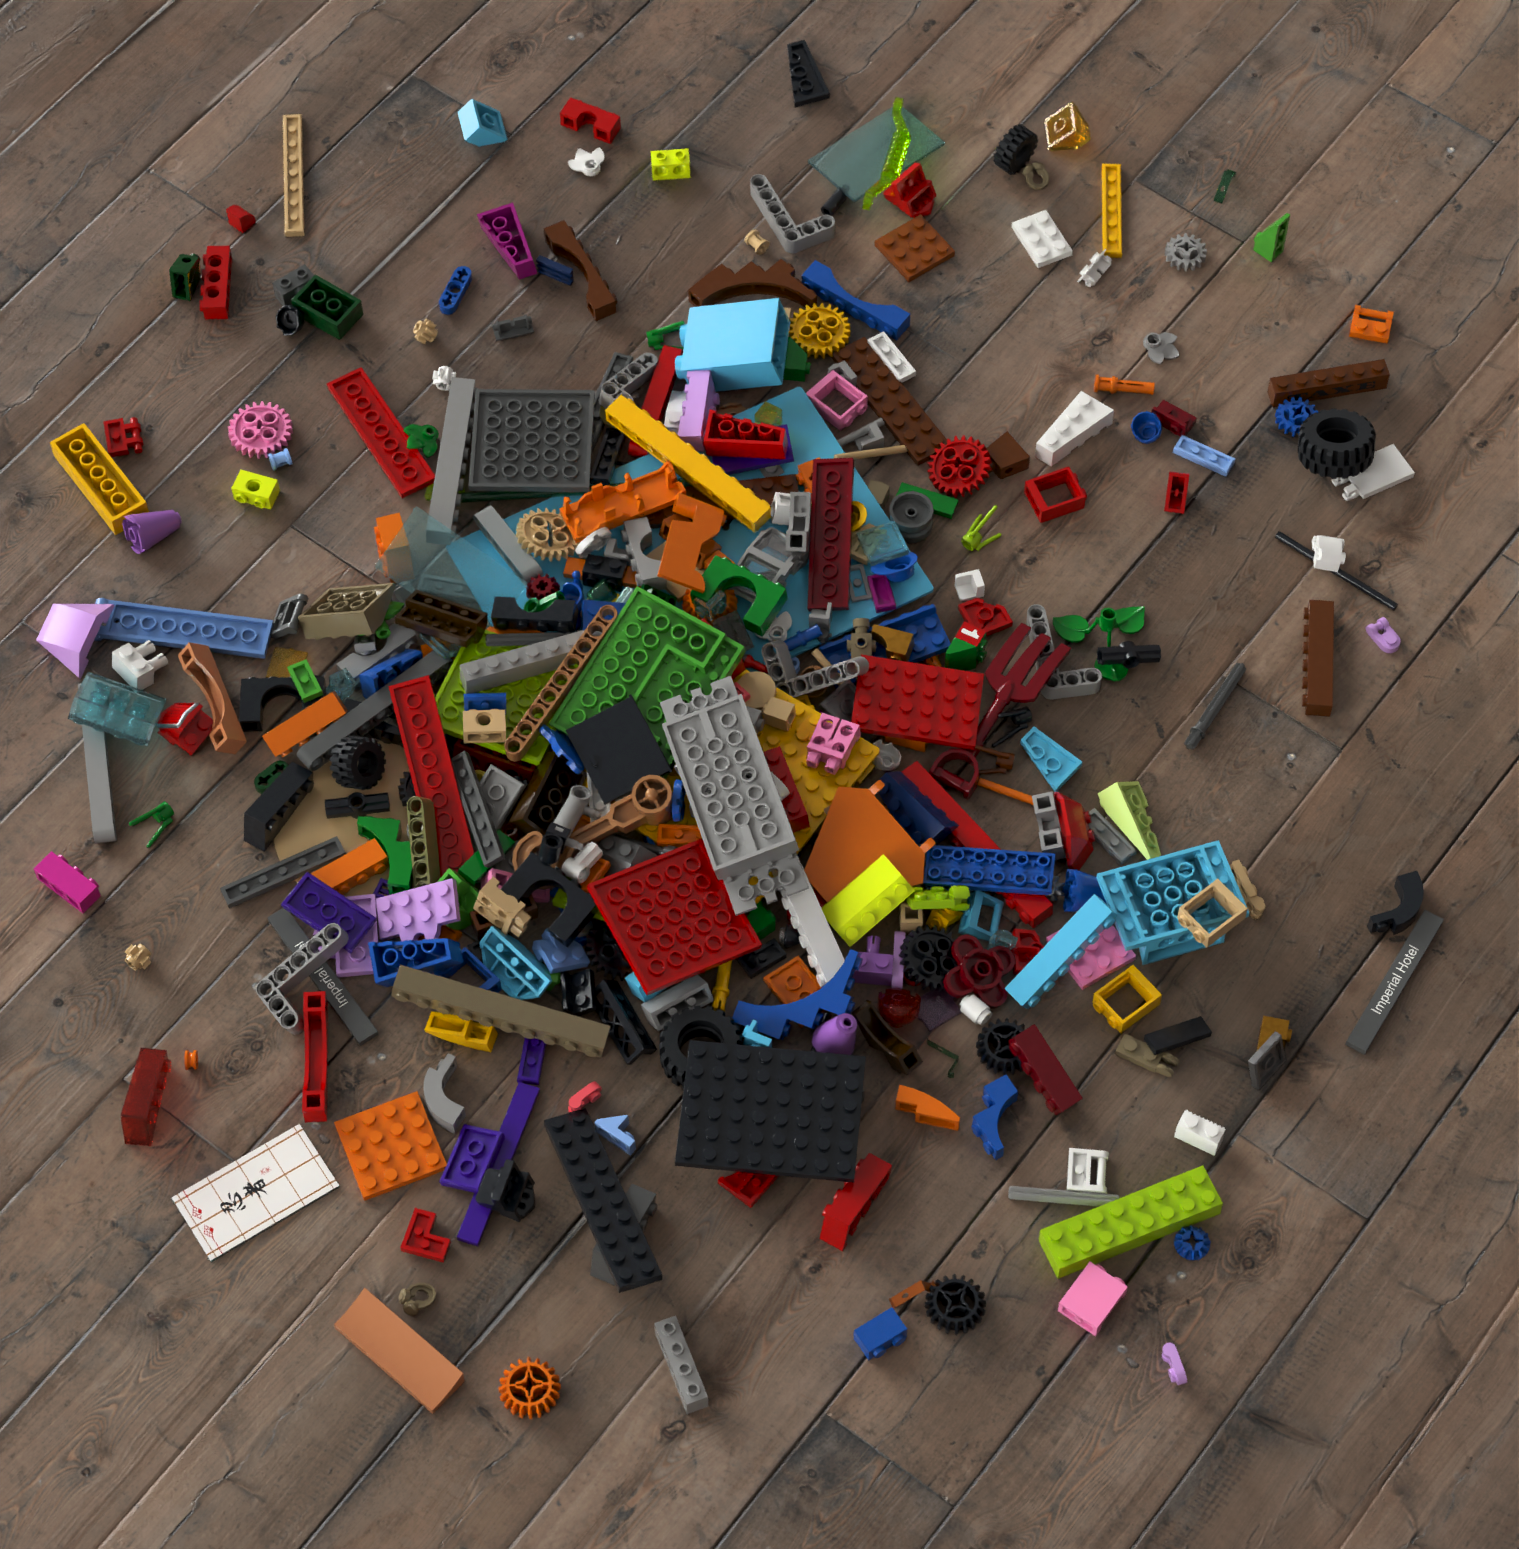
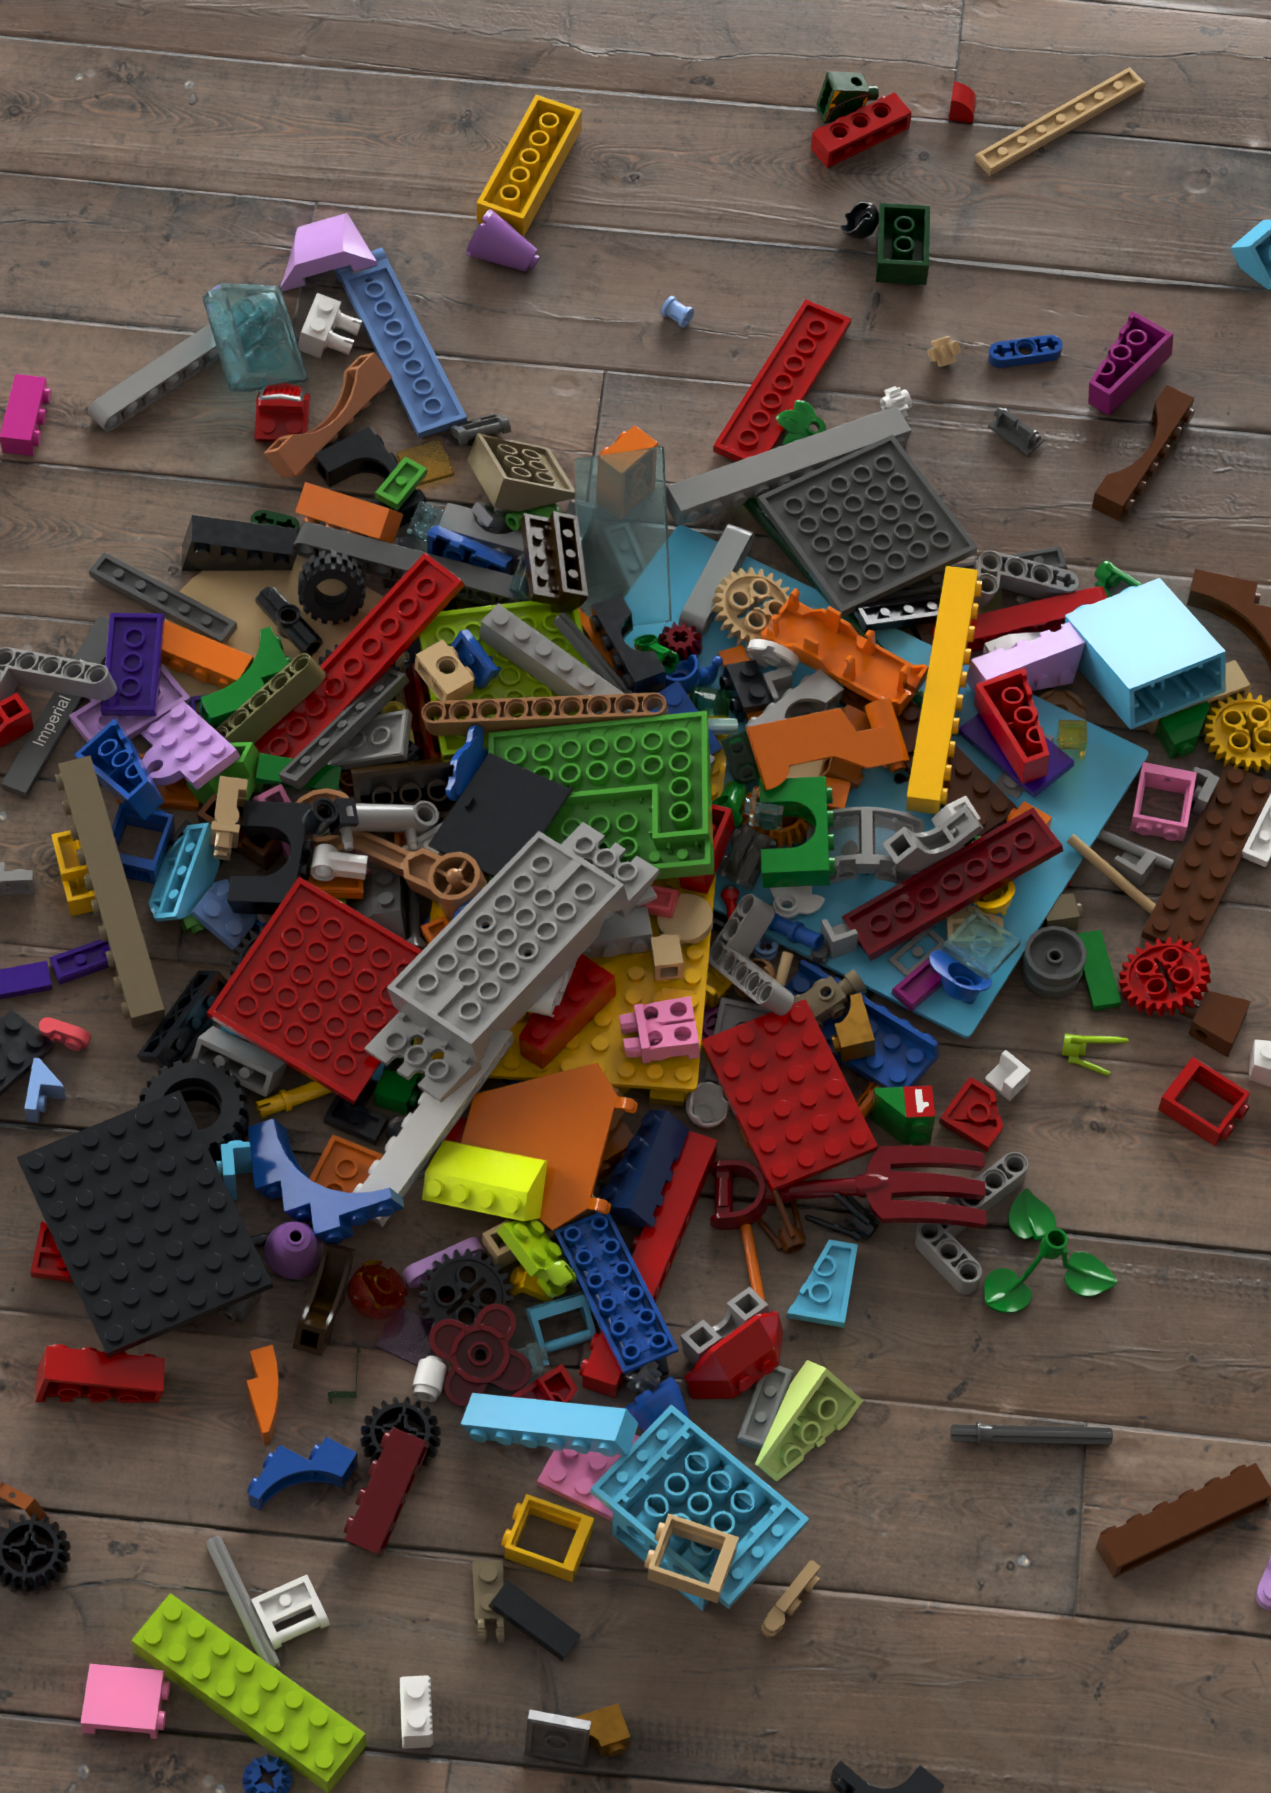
camera: 55 degrees right, 0 degrees up
(116, 436) = (598, 152): red plate -> none
(160, 813) = (162, 450): green plant -> none
(264, 488) = (620, 311): neon yellow brick -> none
(265, 434) = (701, 273): bright pink gear -> none
(291, 284) = (907, 192): dark grey brick -> none
(555, 270) = (1124, 428): dark blue tile -> none
(578, 992) = (191, 957): black bracket -> none
(875, 967) = (415, 1235): medium lavender brick -> none
(1128, 654) = (1030, 1297): black piece -> none

